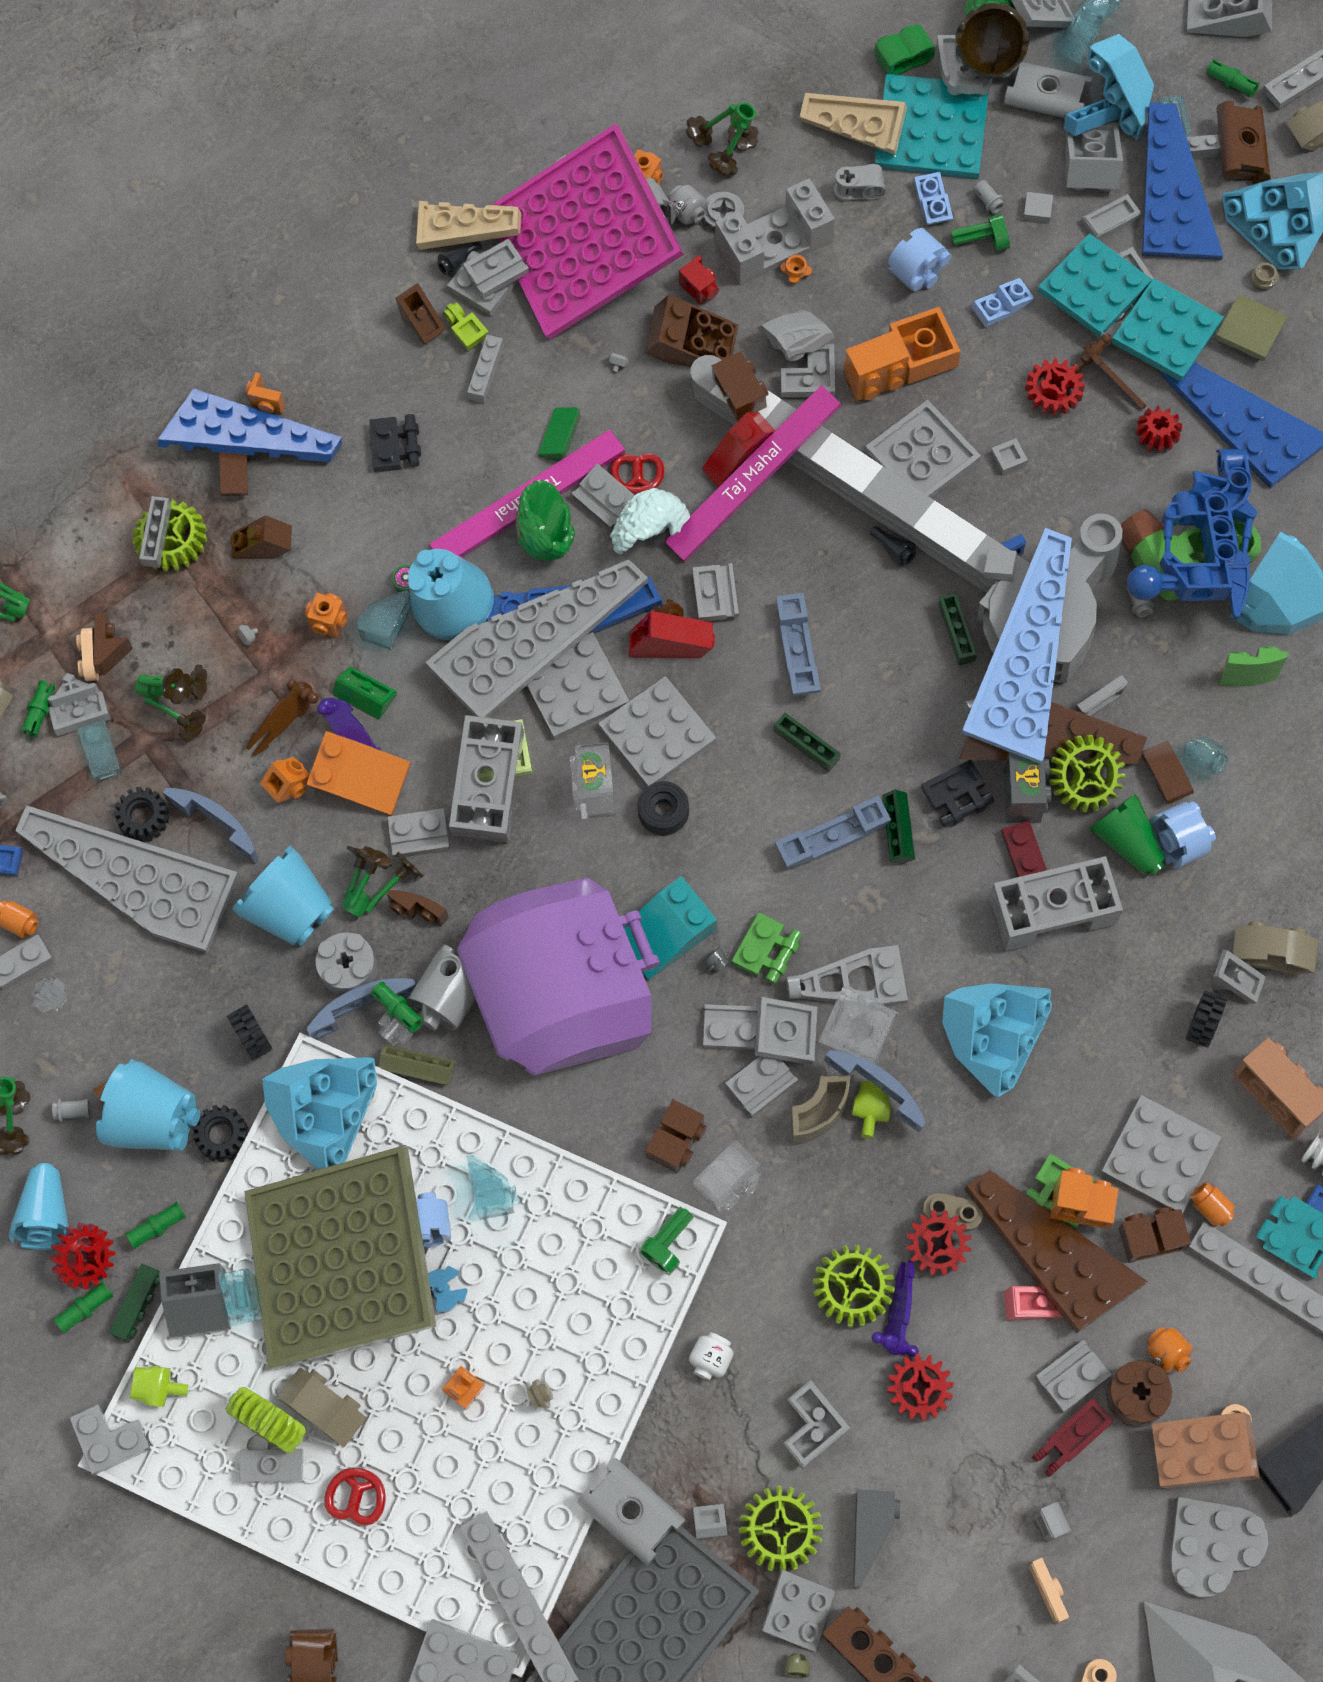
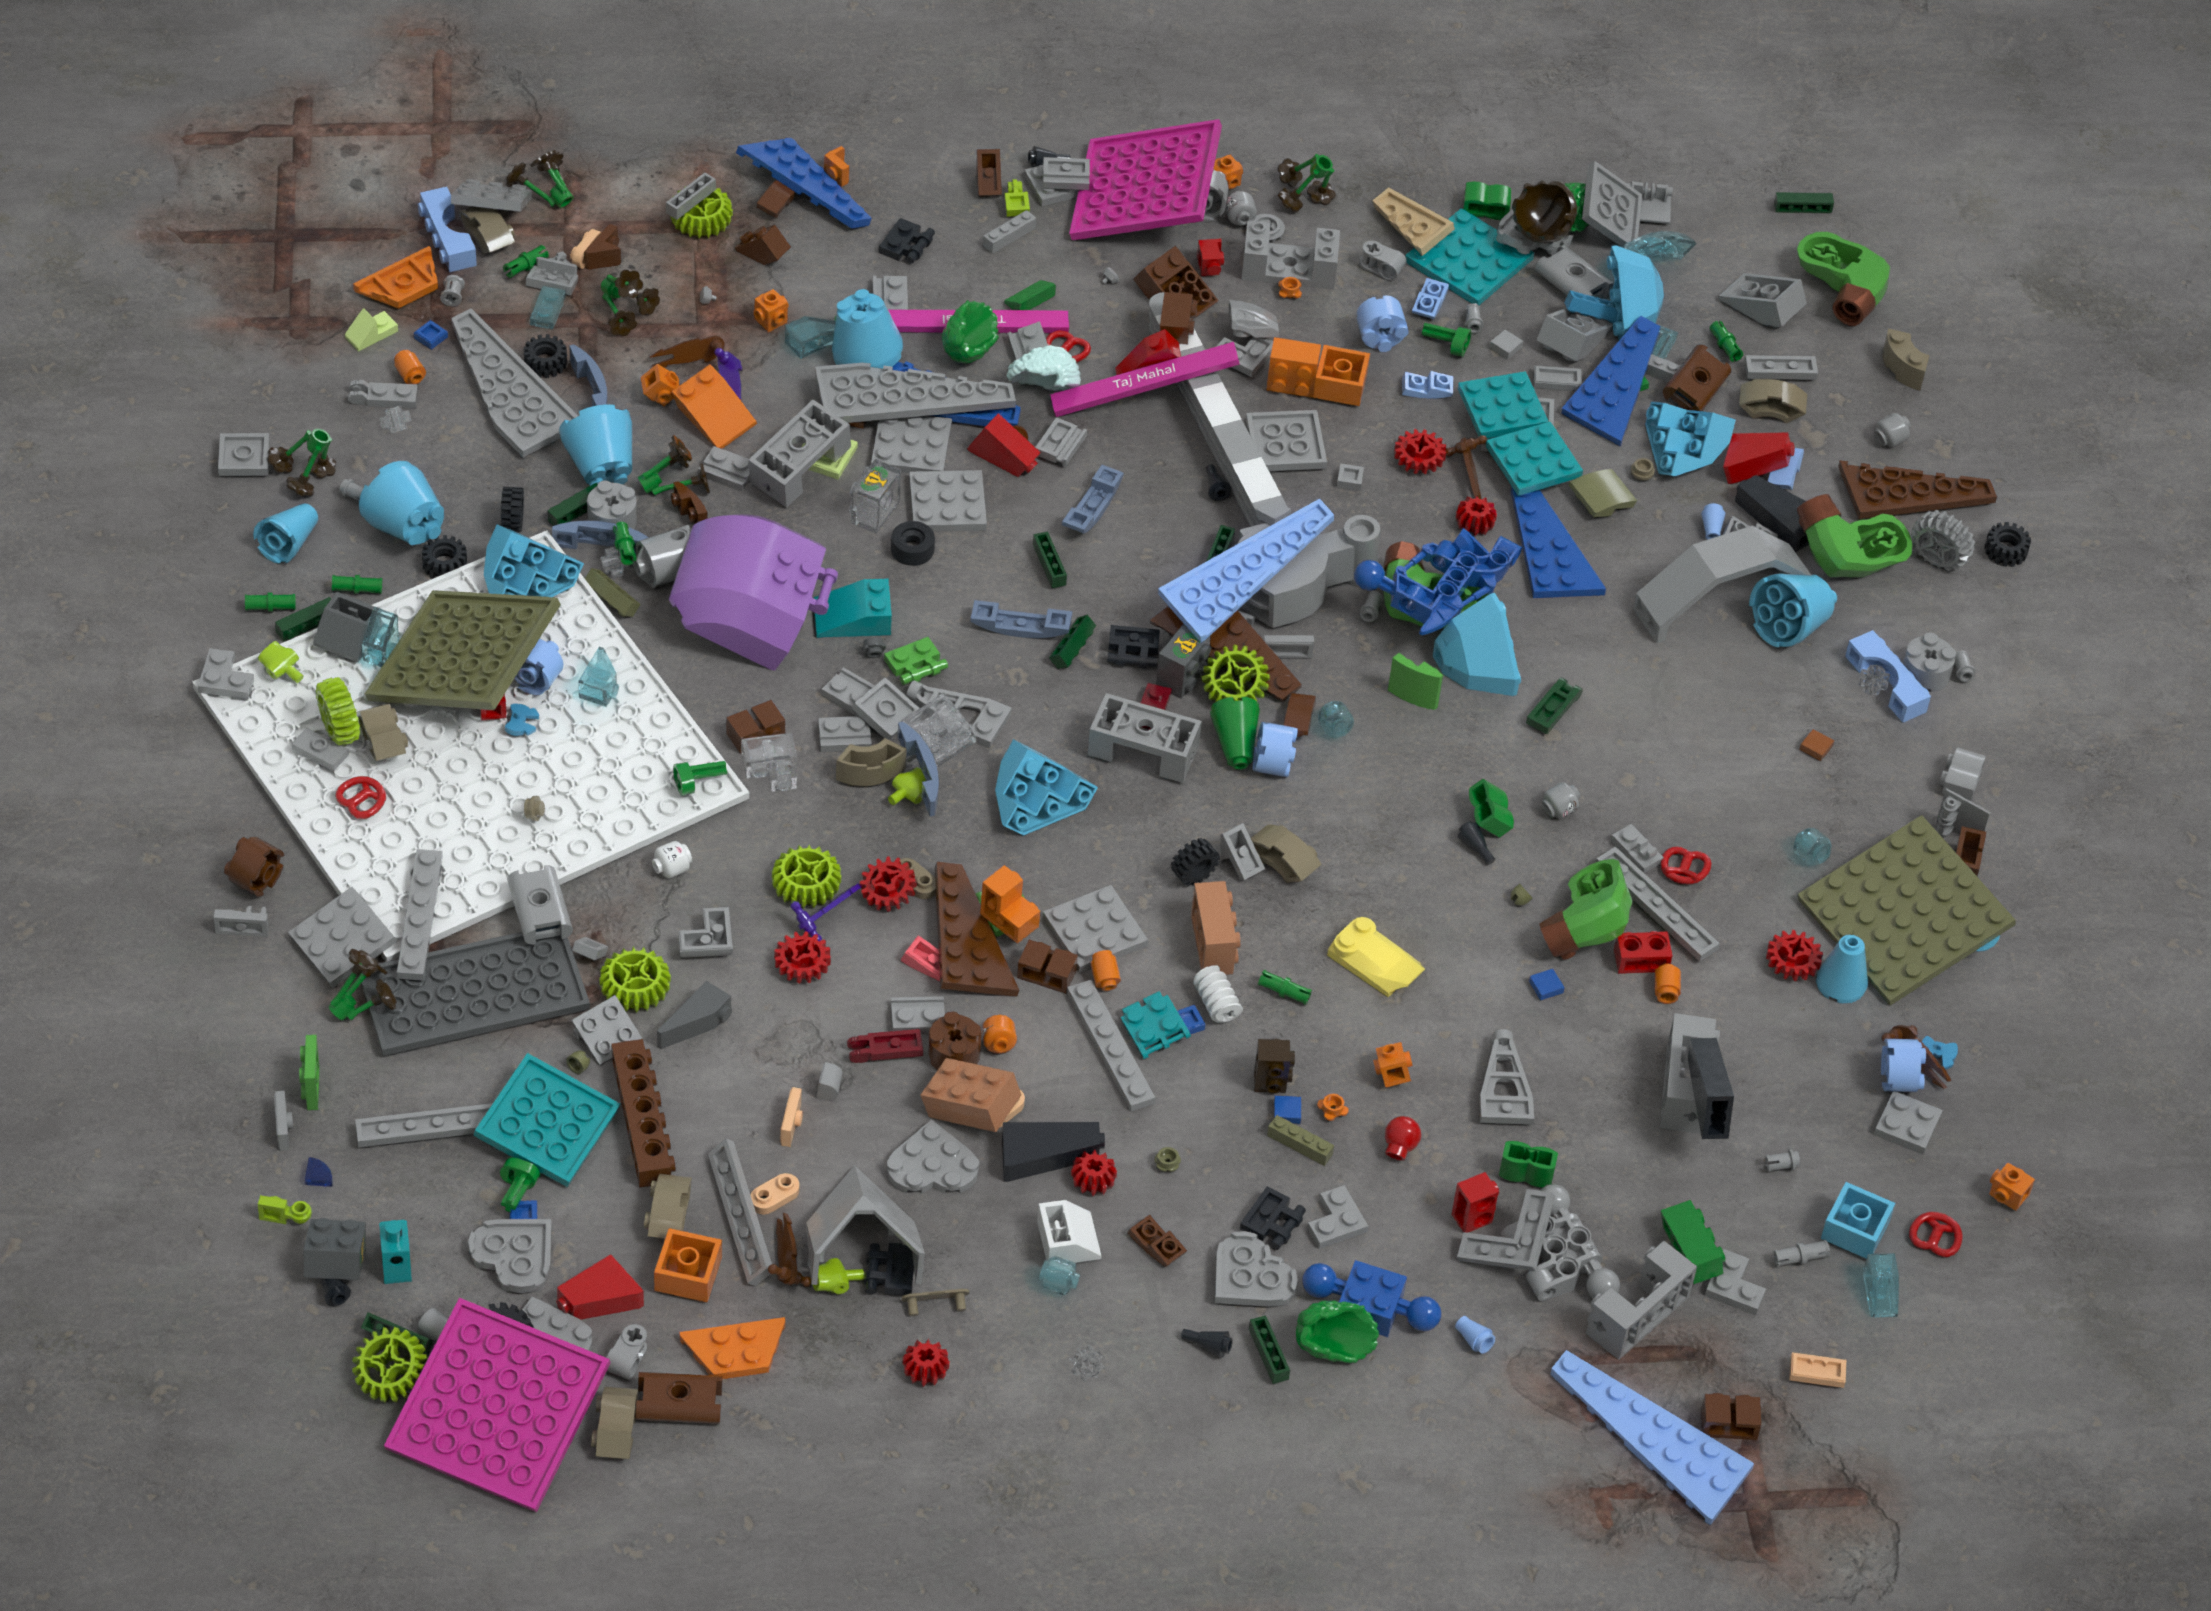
camera: 25 degrees right, 20 degrees down
(71, 1261) = (292, 559): red gear -> none
(302, 982) = (570, 508): none -> dark green piece
(364, 692) = (759, 370): green slope -> none
(424, 517) = (892, 291): none -> light grey plate
(454, 225) = (1062, 137): tan wing -> none
(463, 1387) = (486, 779): orange tile -> none

